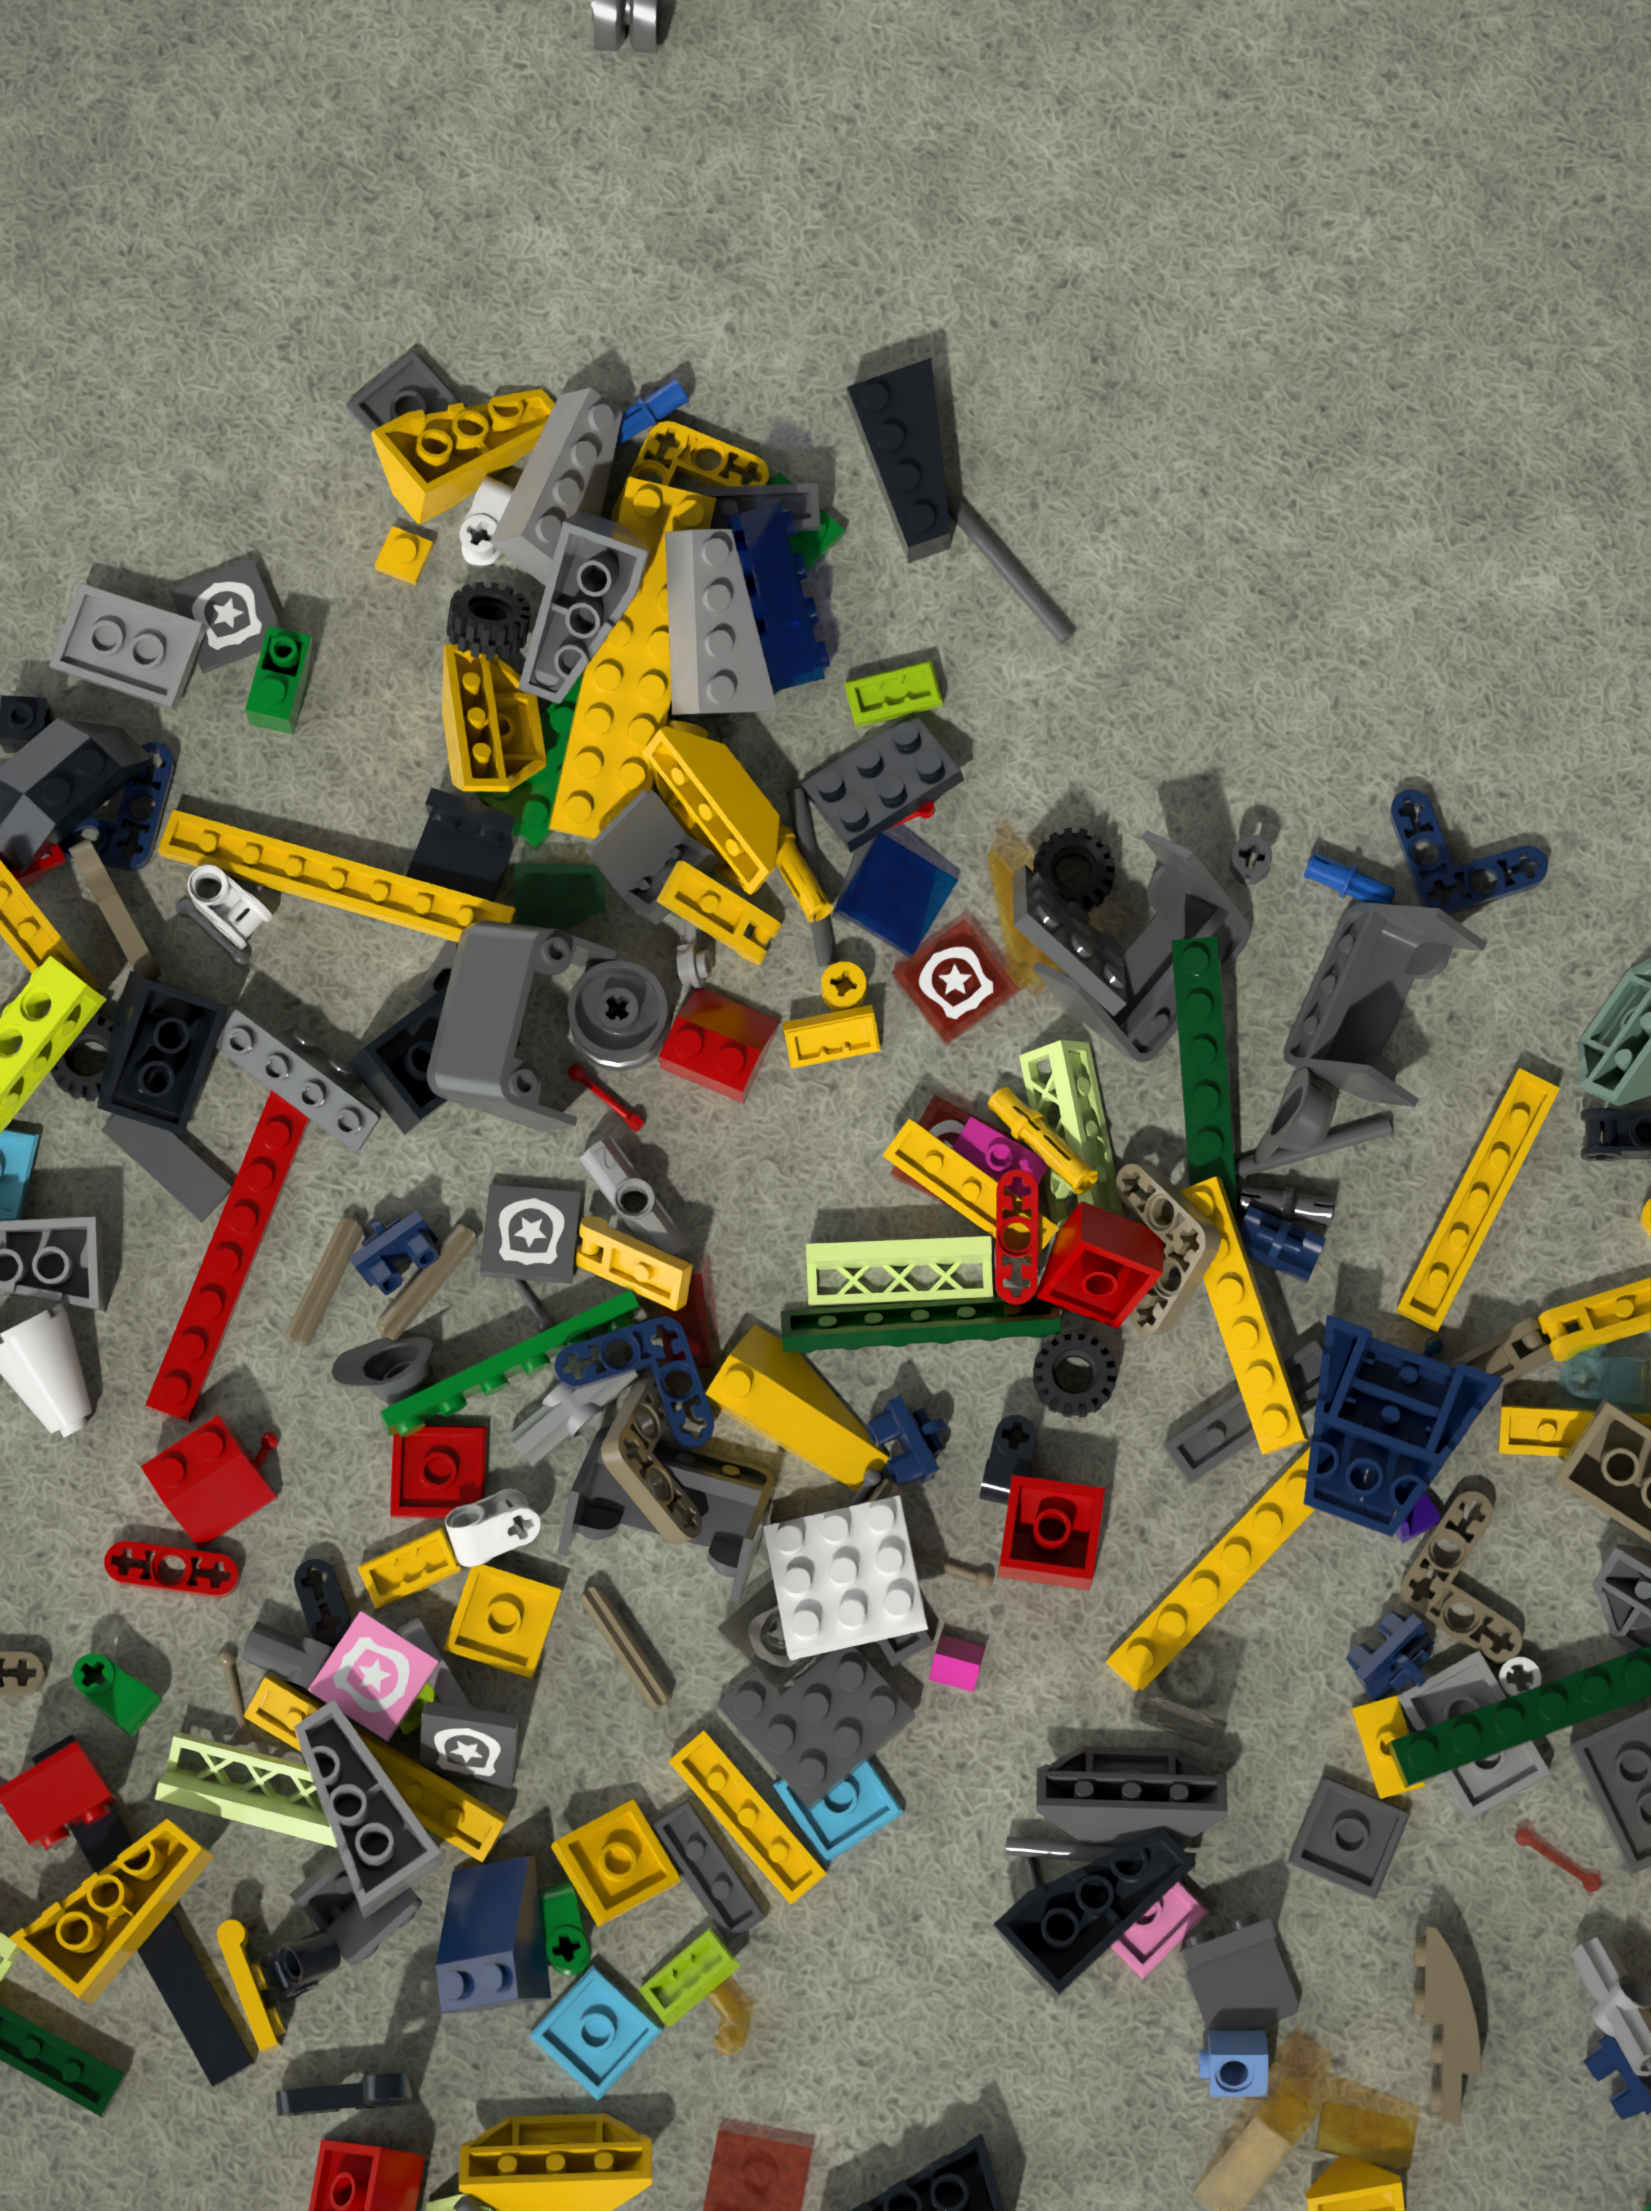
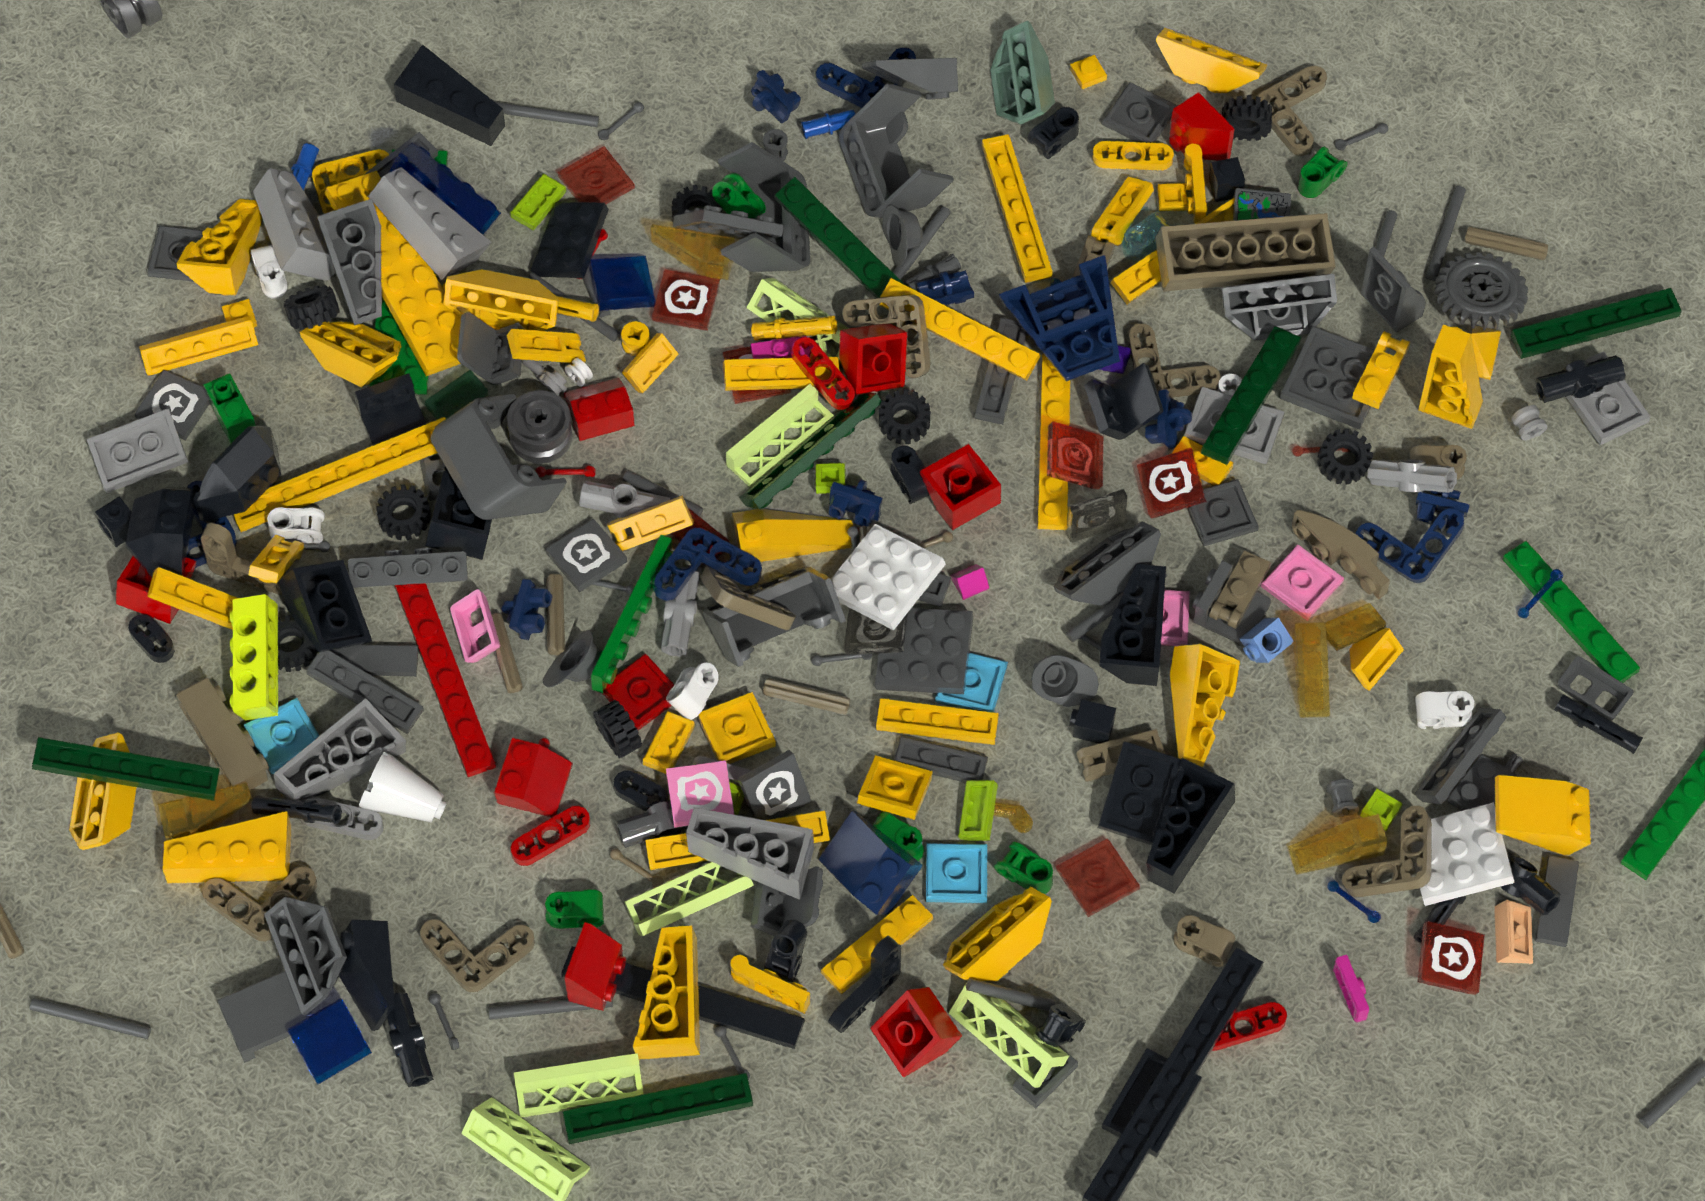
camera: 45 degrees left, 15 degrees down
(118, 1197) = (358, 685): none -> dark grey plate
(148, 1992) = (720, 1031): none -> dark grey hinge
(153, 937) = (275, 559): none -> yellow plate
(212, 787) = (239, 474): none -> black wedge
(307, 1220) = (468, 634): none -> bright pink piece
(318, 559) = (198, 345): none -> yellow plate
(357, 967) = (403, 527): none -> black tyre
(357, 1504) = (617, 728): none -> black tyre
(422, 2041) = (856, 959): none -> yellow plate
(676, 2100) = (1021, 866): none -> green piece
(682, 1610) = (817, 660): none -> dark grey hinge
(695, 1227) = (653, 488): none -> dark grey bar
(735, 976) = (578, 372): none -> white bush
(895, 2128) = (1138, 793): none -> black plate
(910, 1379) = (827, 474): none -> lime plate
(928, 2055) = (1110, 752): none -> dark tan plate
(929, 1984) = (1093, 721): none -> black brick
(941, 1898) = (1064, 680): none -> dark grey piece
(993, 720) = (596, 178): none -> clear red tile
(1059, 661) = (637, 108): none -> dark grey hinge
(1094, 2053) = (1198, 688): none -> yellow wedge
(1131, 905) = (739, 197): none -> green piece
(1233, 1609) = (1075, 455): none -> clear red tile
(1269, 1966) = (1240, 589): none -> dark tan plate
(1306, 785) = (771, 96): none -> dark blue hips
(1319, 1748) = (1171, 483): none -> clear red tile
(1356, 1590) = (1124, 404): none -> black bracket
(1362, 2019) = (1302, 582): none -> bright pink tile
(1511, 916) = (930, 76): none -> dark grey slope
(1526, 2101) = (1411, 556): none -> dark blue beam
(1598, 1910) = (1355, 445): none -> black tyre

